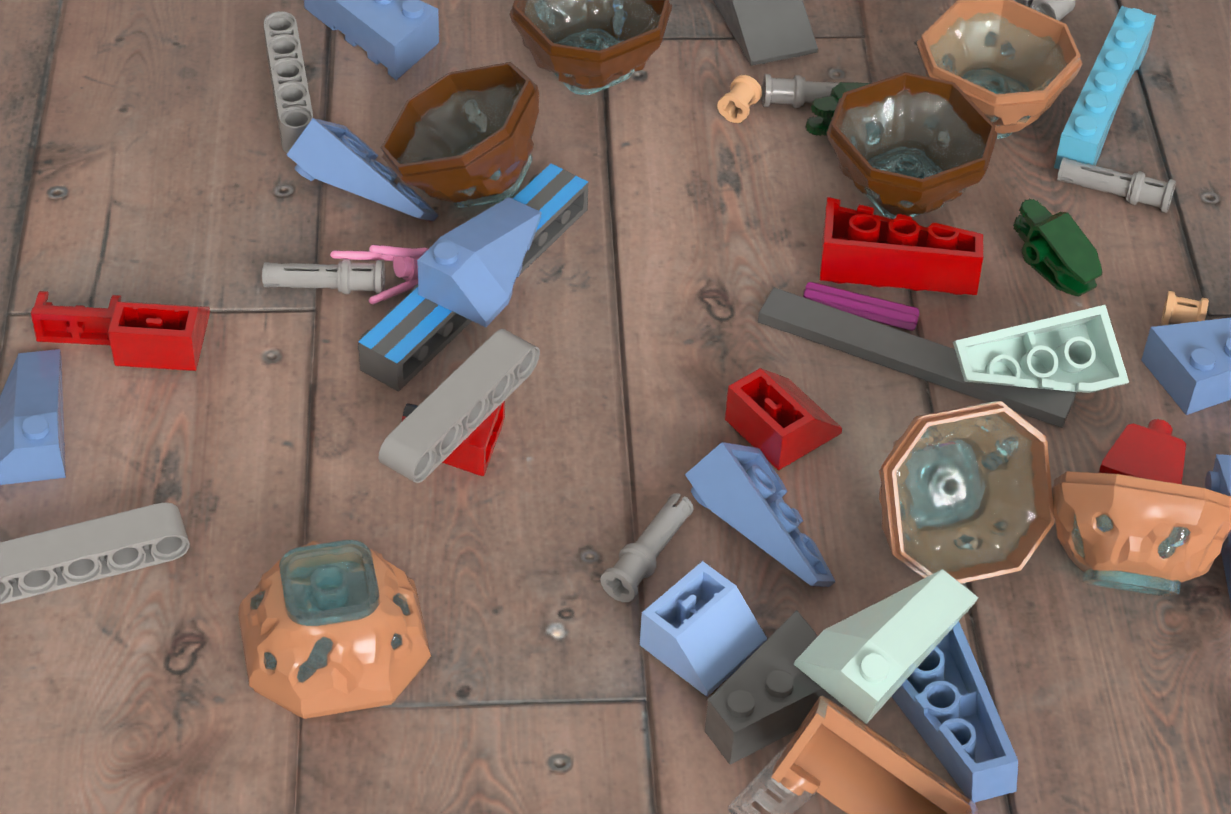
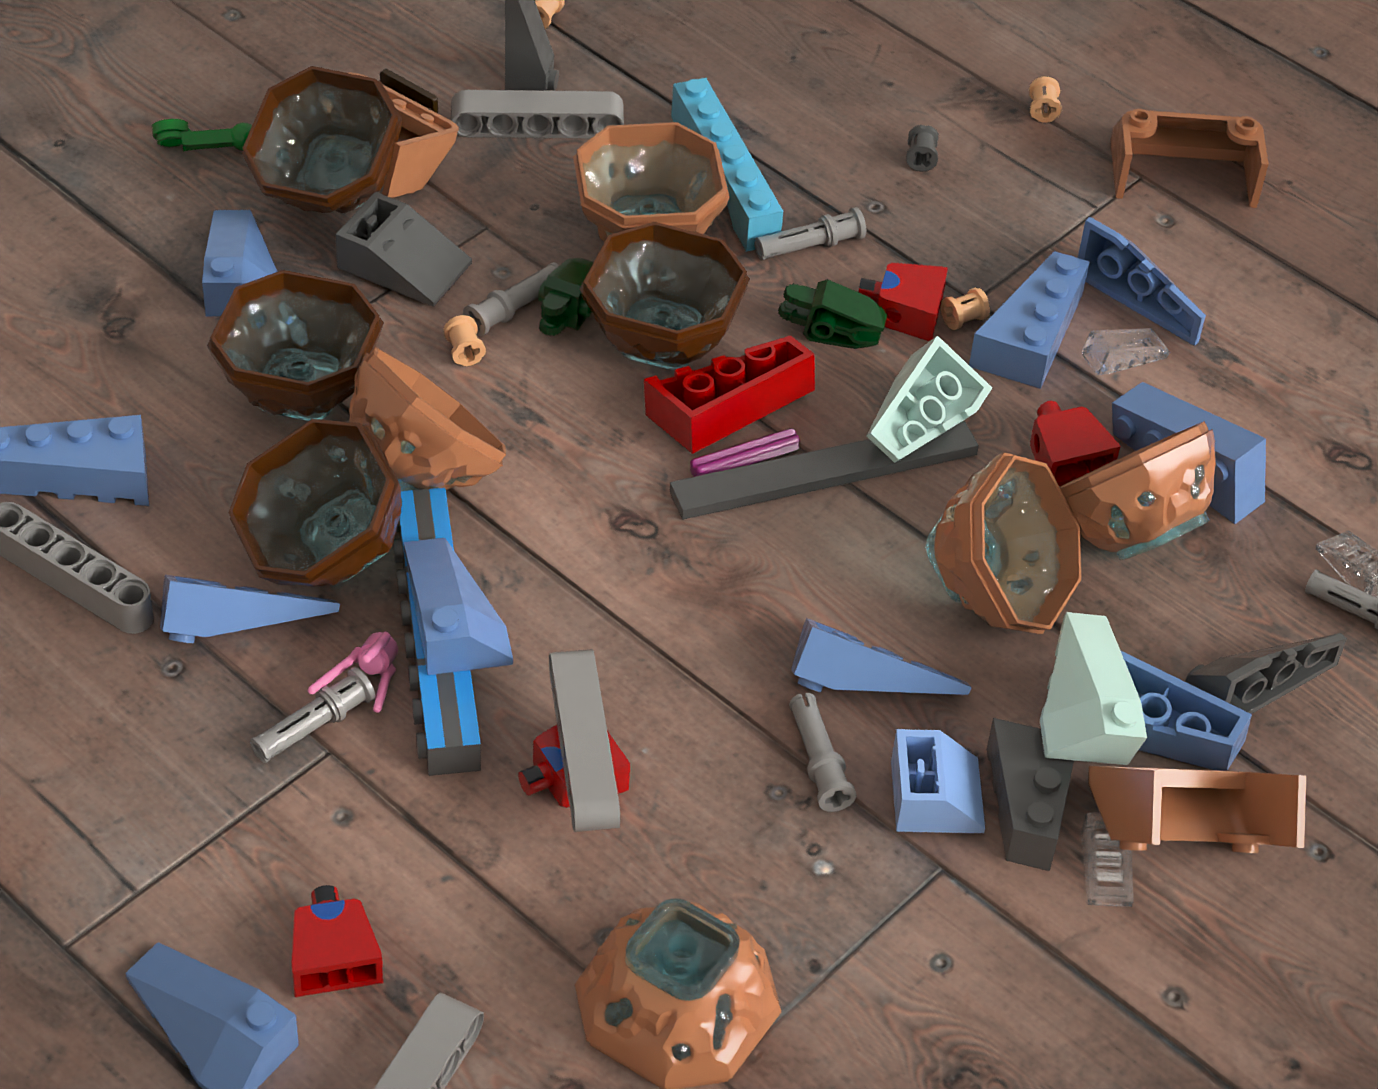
camera: 45 degrees left, 0 degrees up
(72, 323) = (148, 905): red hinge -> none
(151, 426) = (333, 945): none -> red torso
(158, 335) = (241, 862): red slope -> none
(609, 122) = (421, 427): none -> nougat rock
(777, 417) = (798, 586): red slope -> none
(1077, 748) = (1266, 674): none -> dark grey wedge
(1142, 274) = (909, 297): none -> red torso

